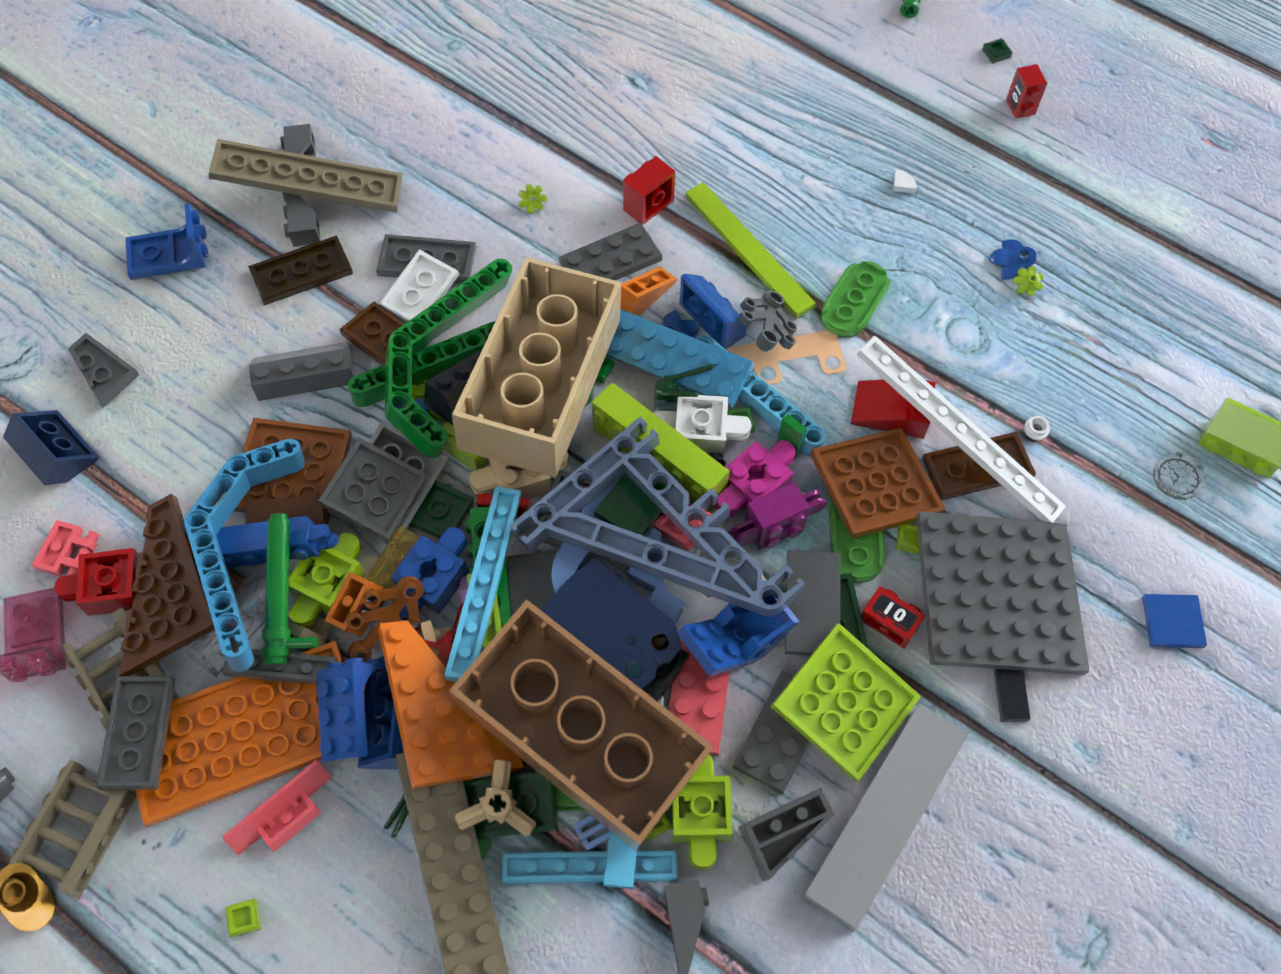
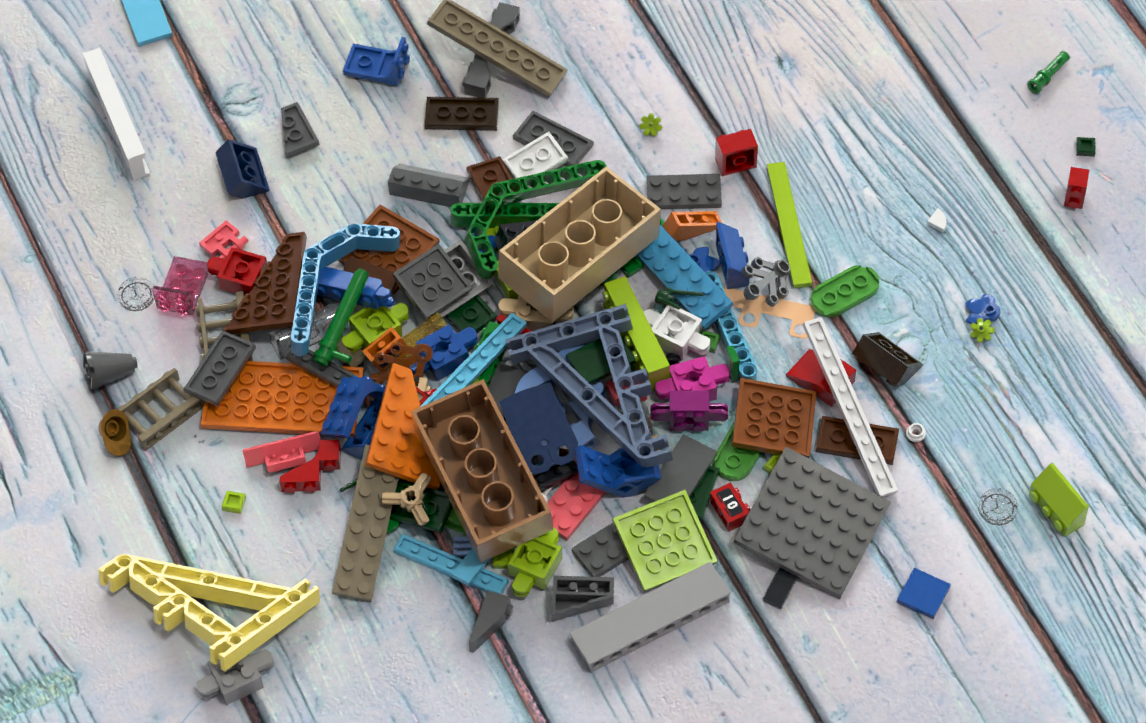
camera: 30 degrees right, 5 degrees down
(333, 829) = (308, 475): none -> red arch
(953, 357) = (886, 358): none -> dark brown slope

